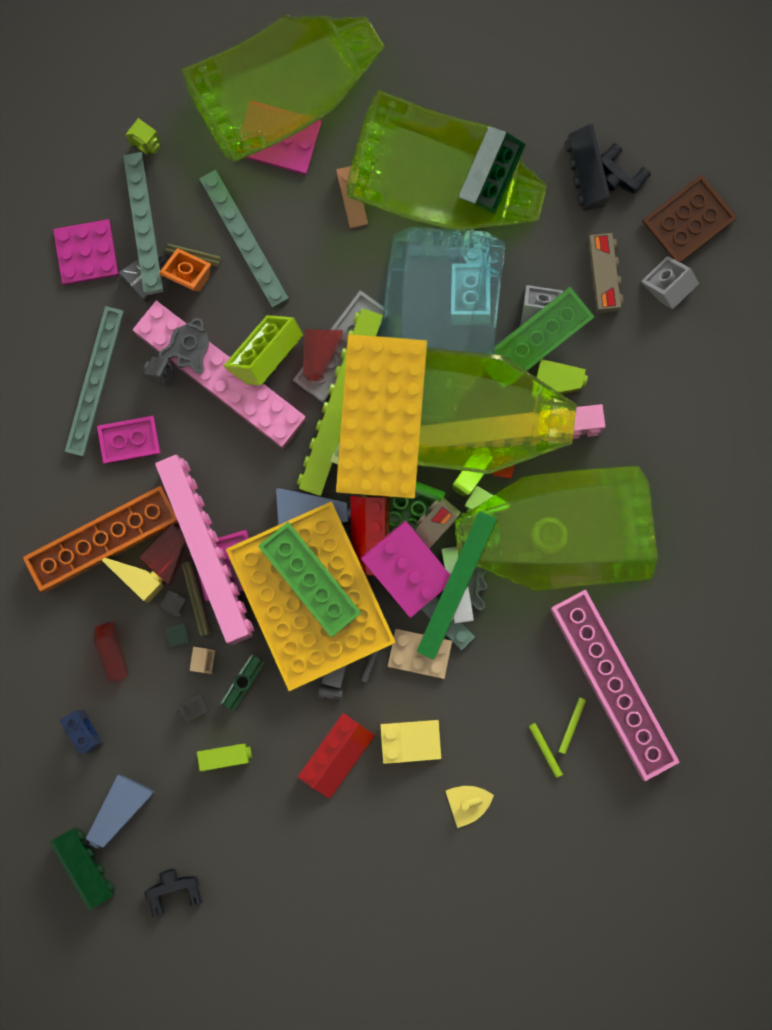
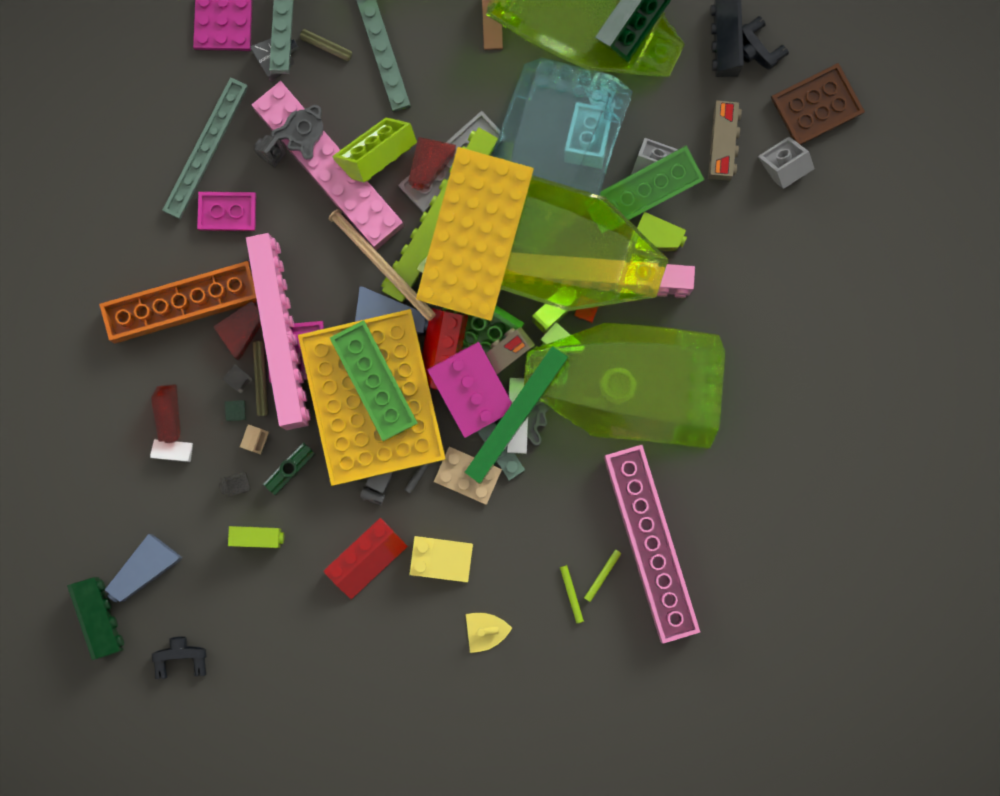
camera: 10 degrees right, 0 degrees up
(76, 727) = (118, 484): dark blue panel -> none
(125, 688) = (172, 451): none -> white slope
(142, 582) = (209, 350): light yellow slope -> none
(186, 270) = (316, 57): orange slope -> none
(293, 462) = (381, 264): none -> tan axle

